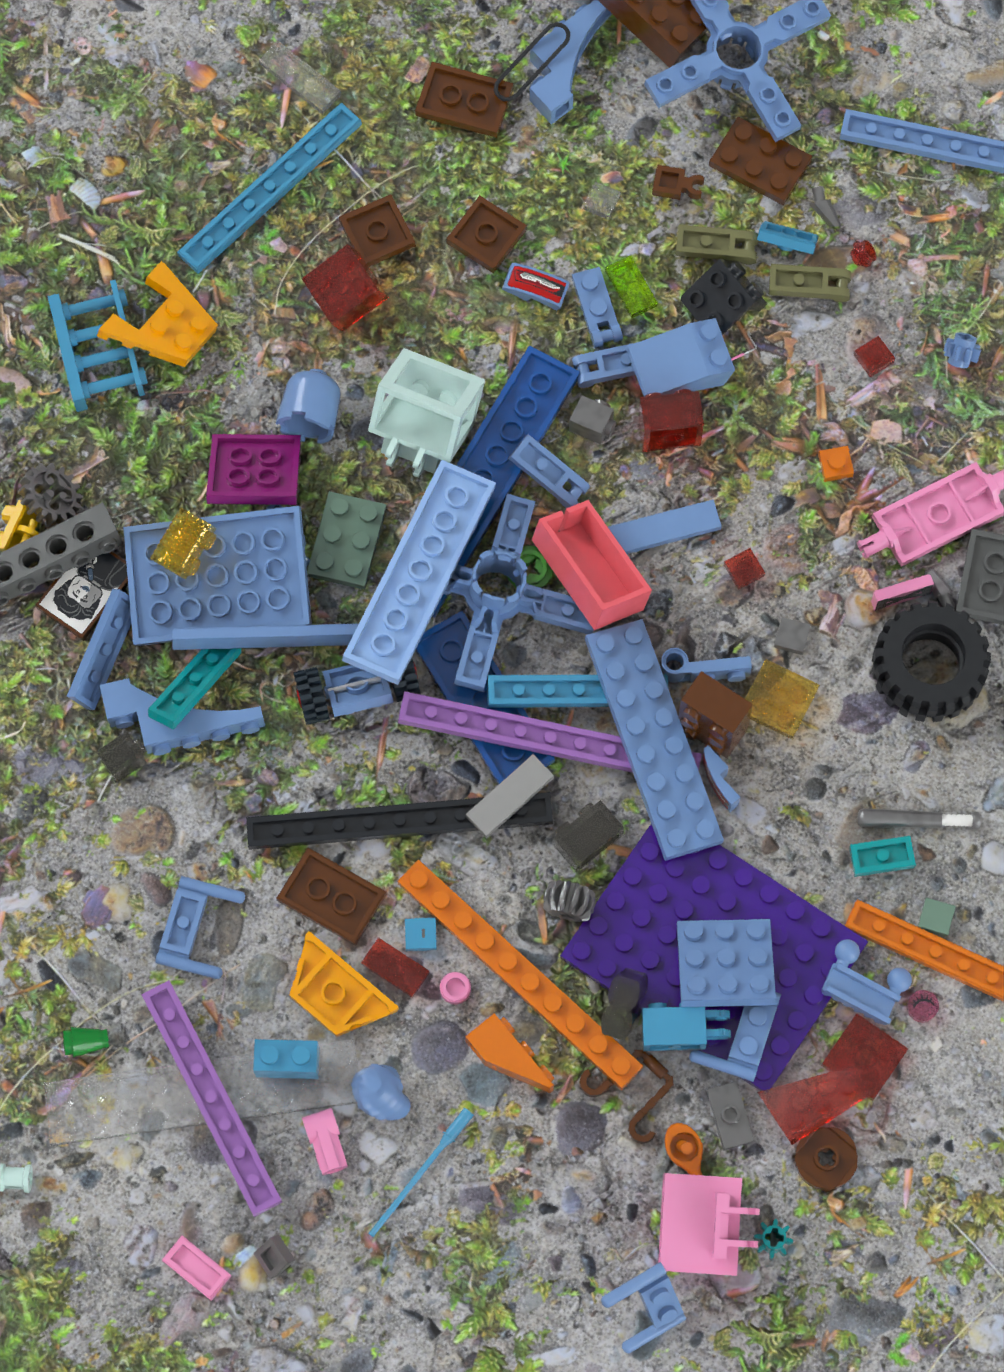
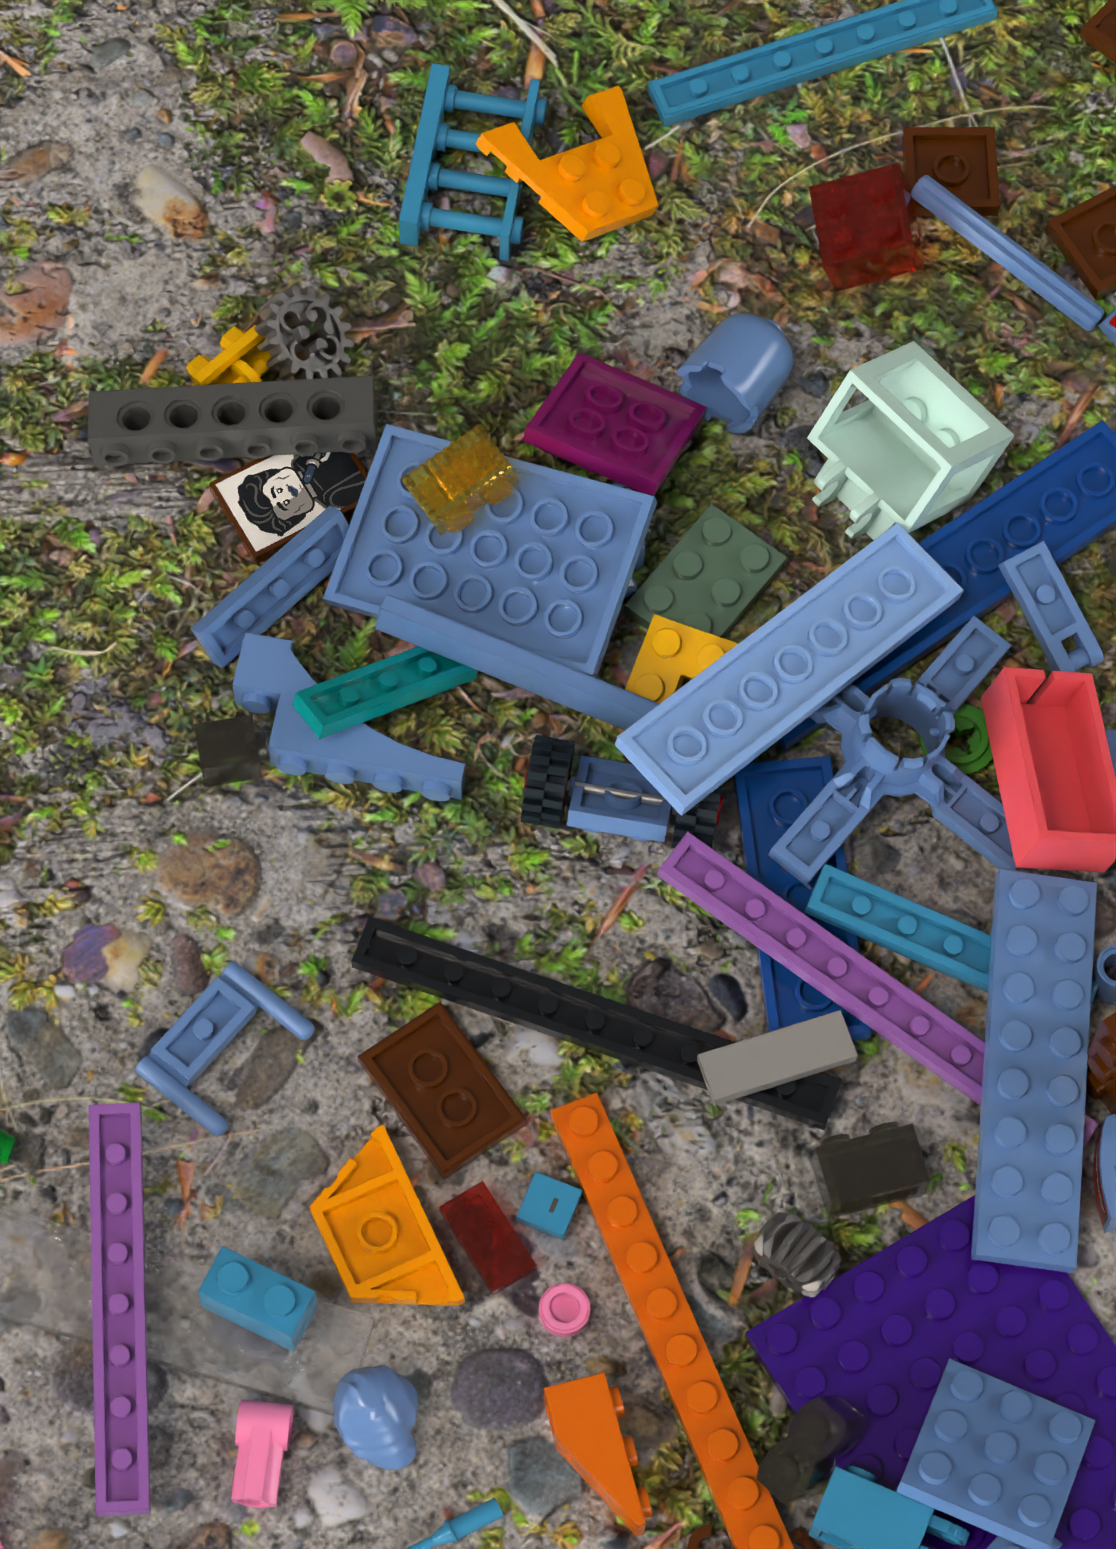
camera: 20 degrees right, 5 degrees down
(346, 592) = (670, 655): none -> yellow plate
(431, 268) = (1007, 253): none -> medium blue axle

